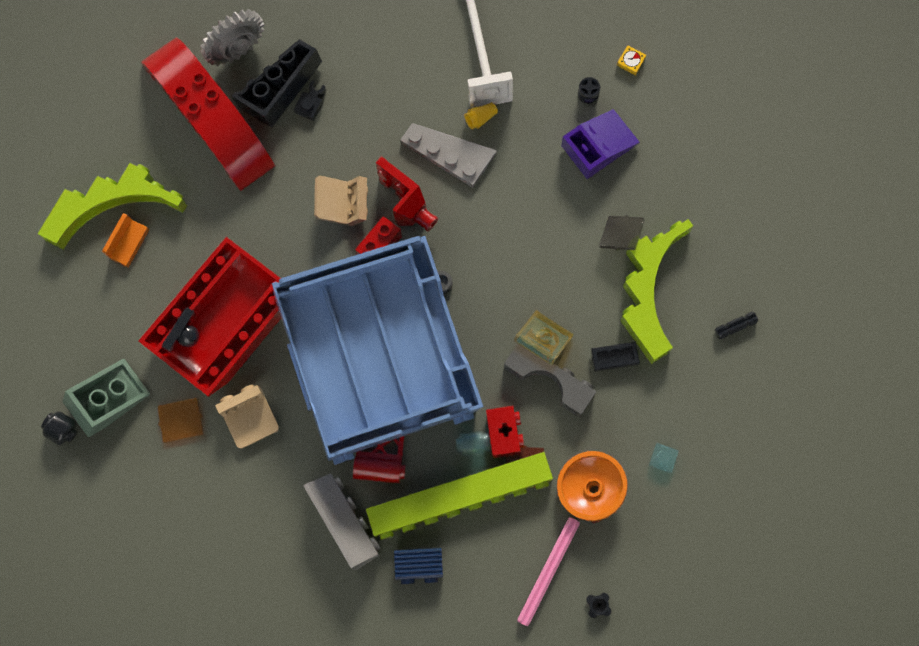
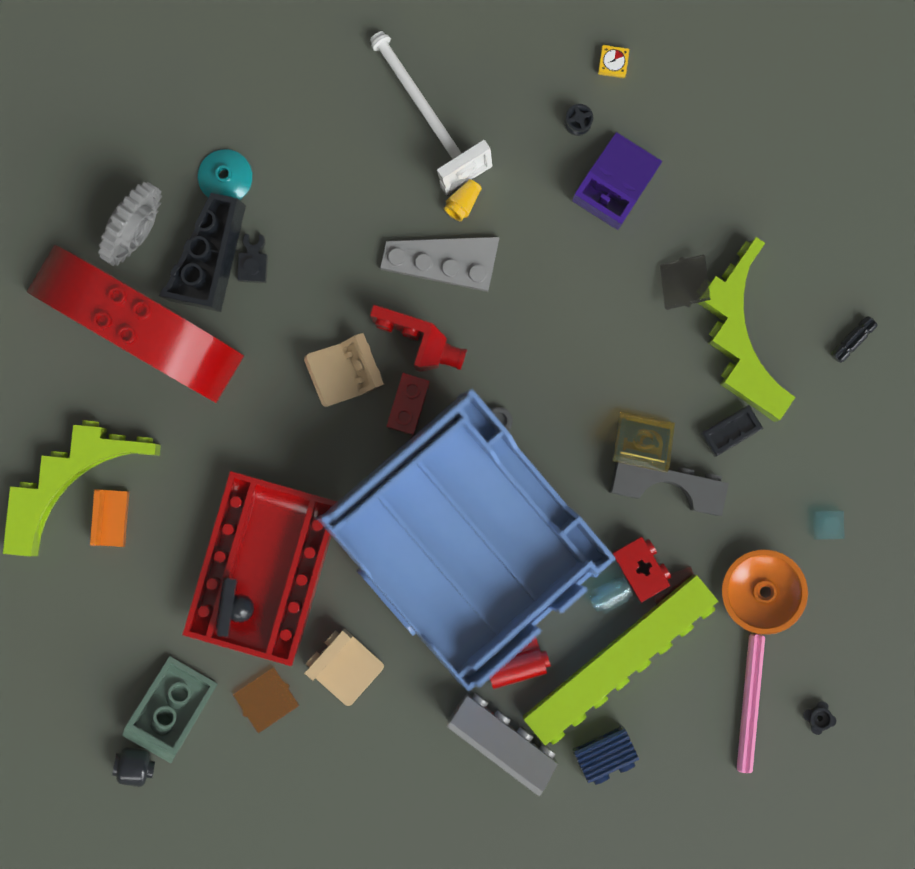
camera: 30 degrees left, 10 degrees up
(327, 37) = (238, 179): none -> teal dish

